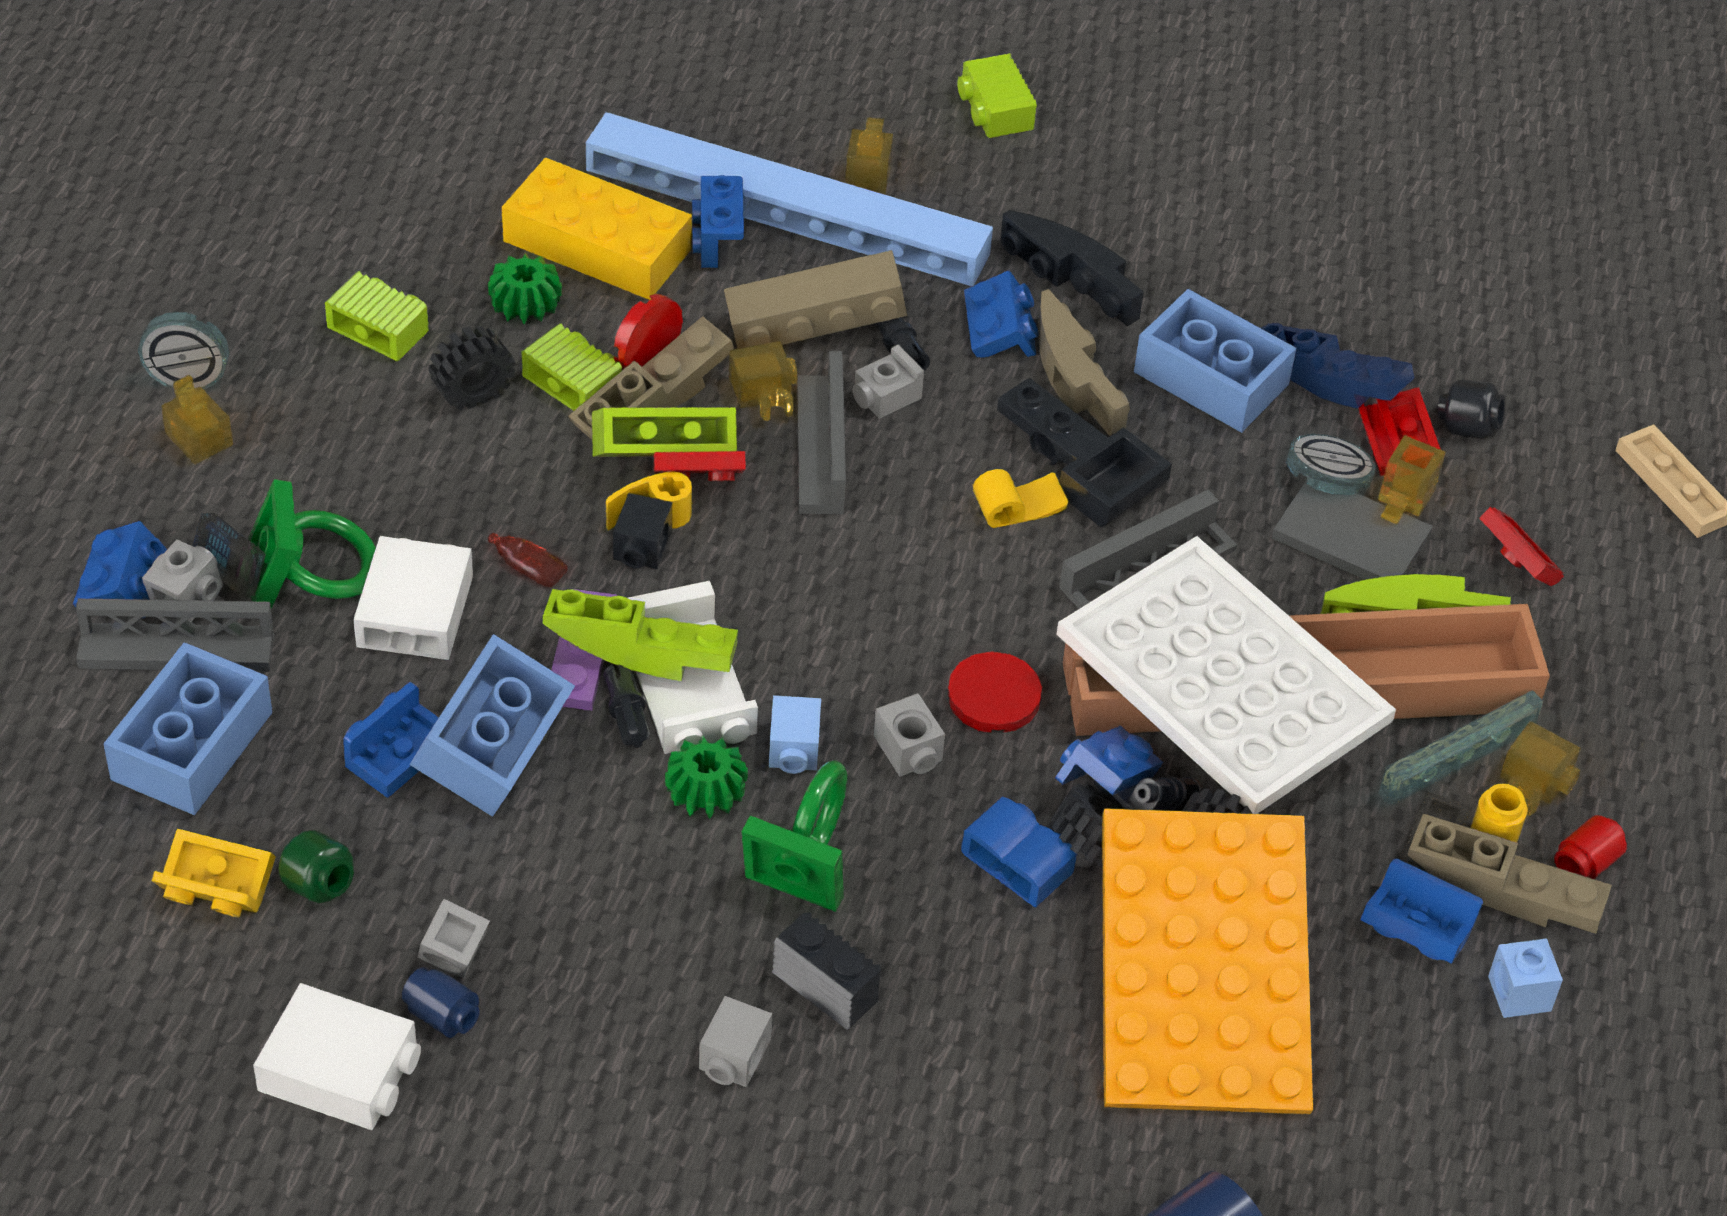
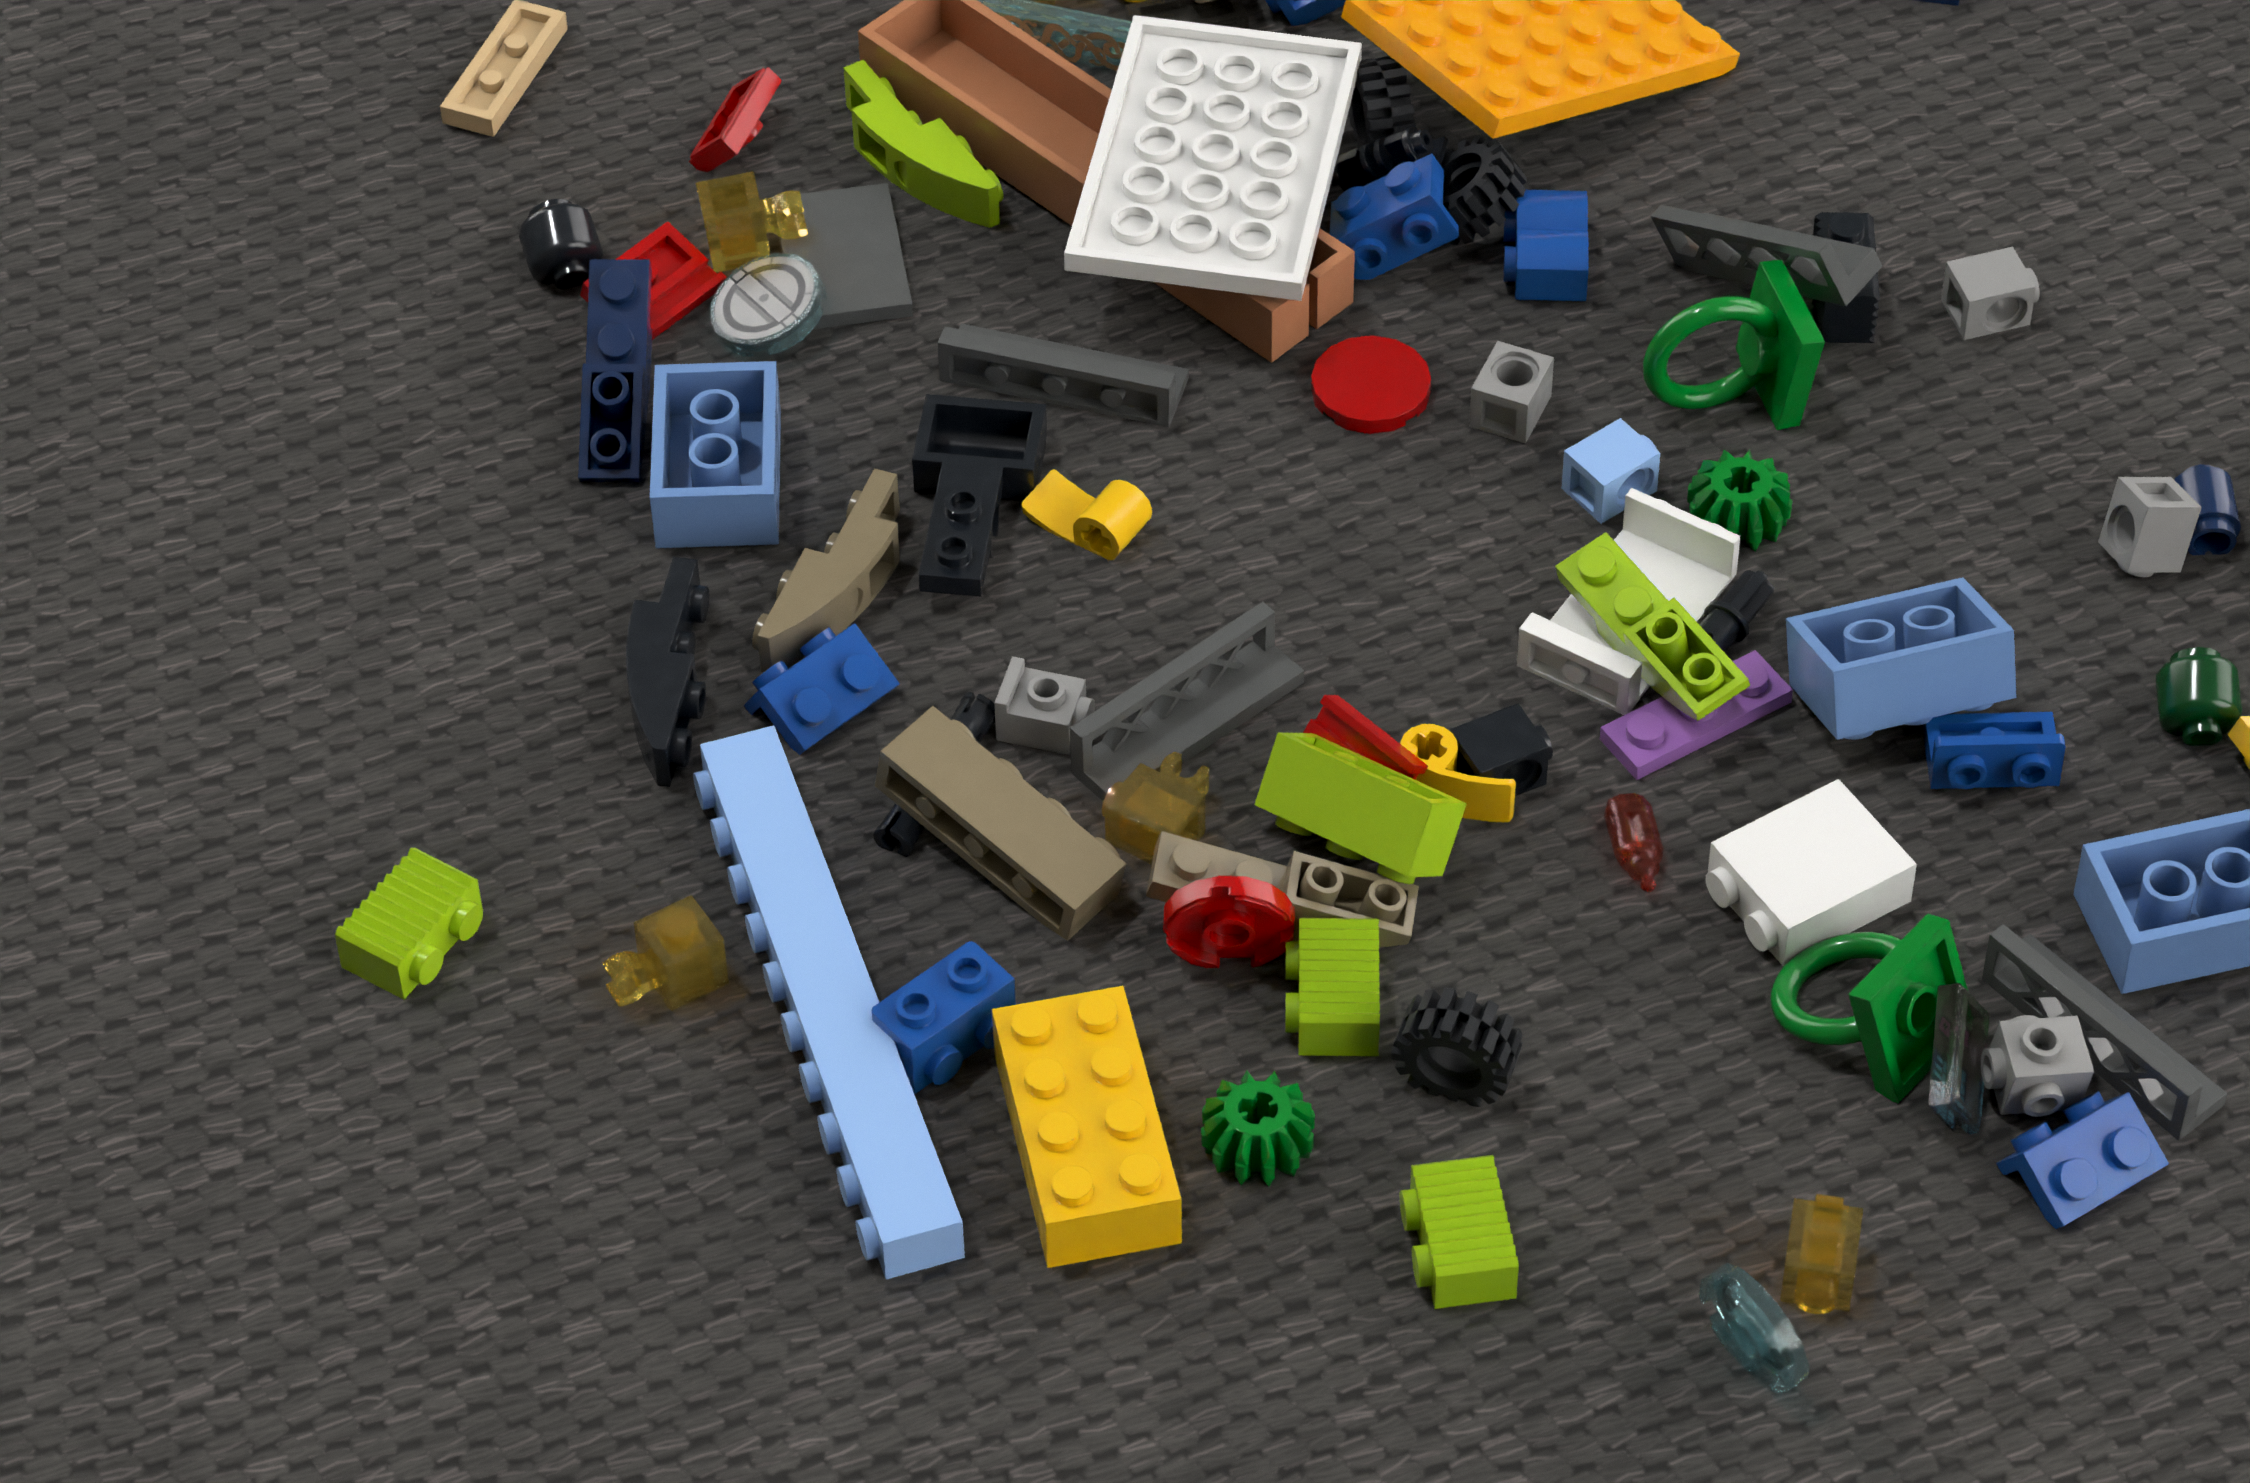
camera: 125 degrees left, 0 degrees up
(863, 910) = (1734, 248): none -> dark grey fence

